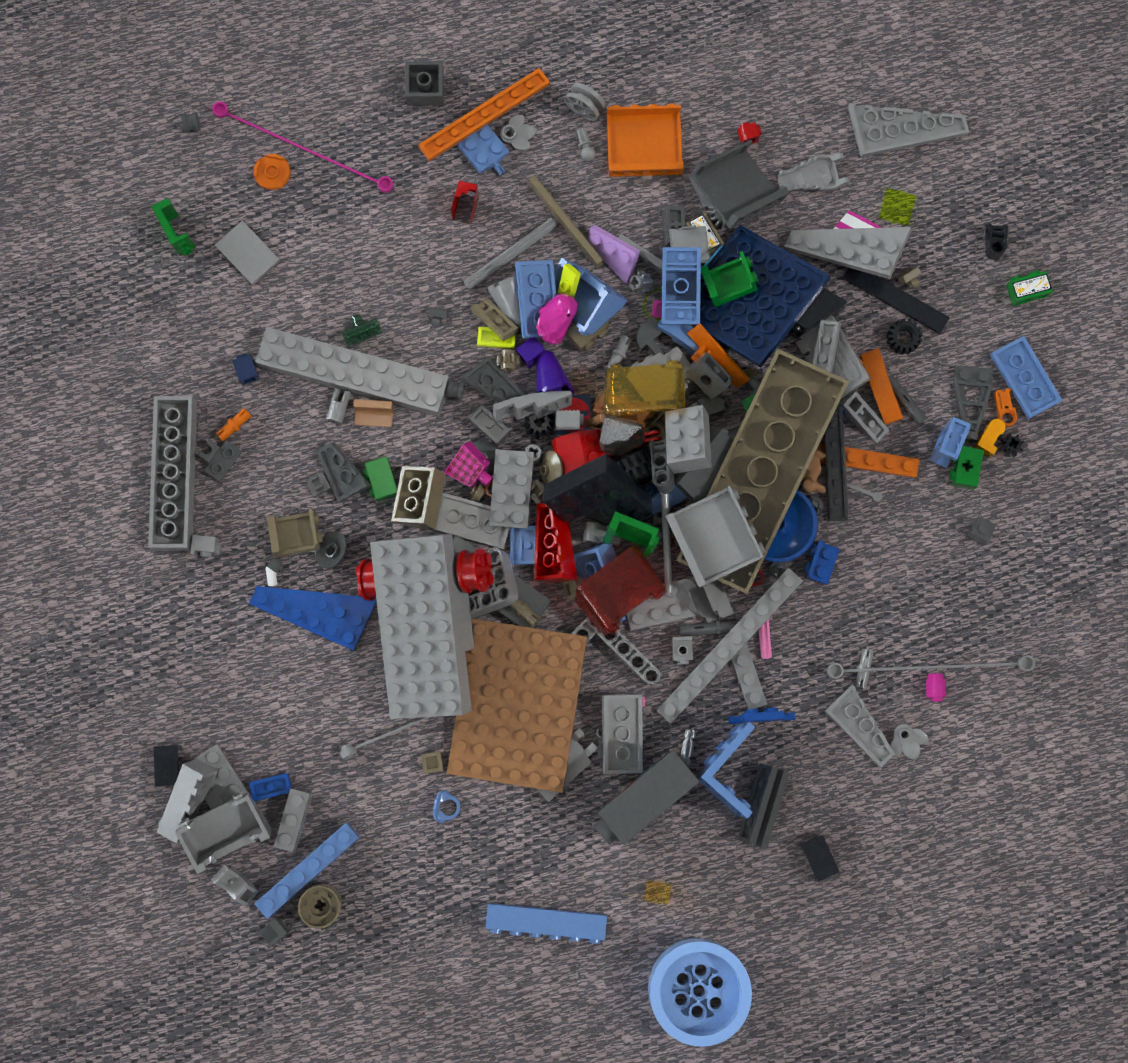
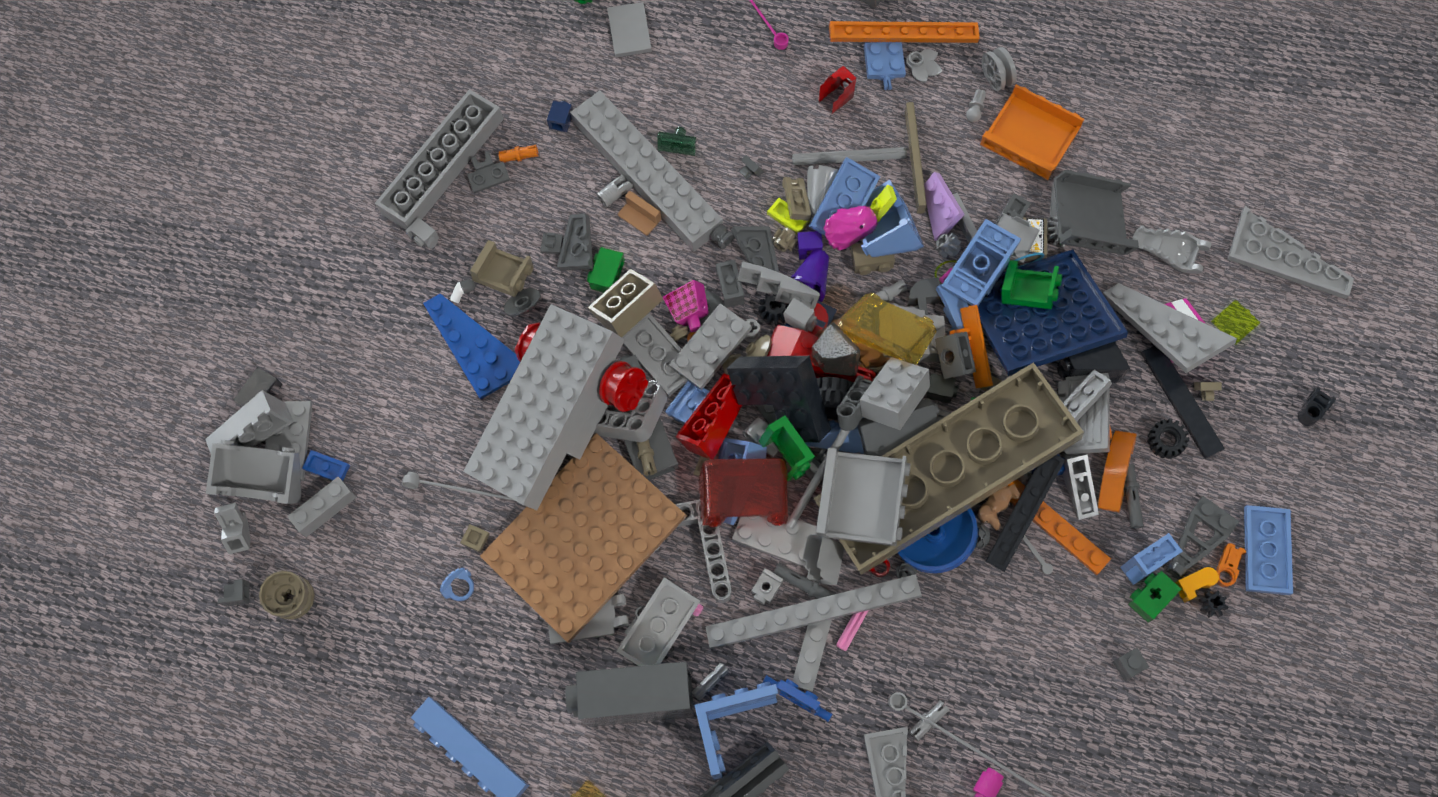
camera: 40 degrees right, 10 degrees down
(307, 870) = (302, 558): medium blue brick -> none
(749, 131) = (1135, 177): red plate -> none
(822, 562) = (952, 594): blue bracket -> none
(1029, 288) = (1323, 469): brick -> none

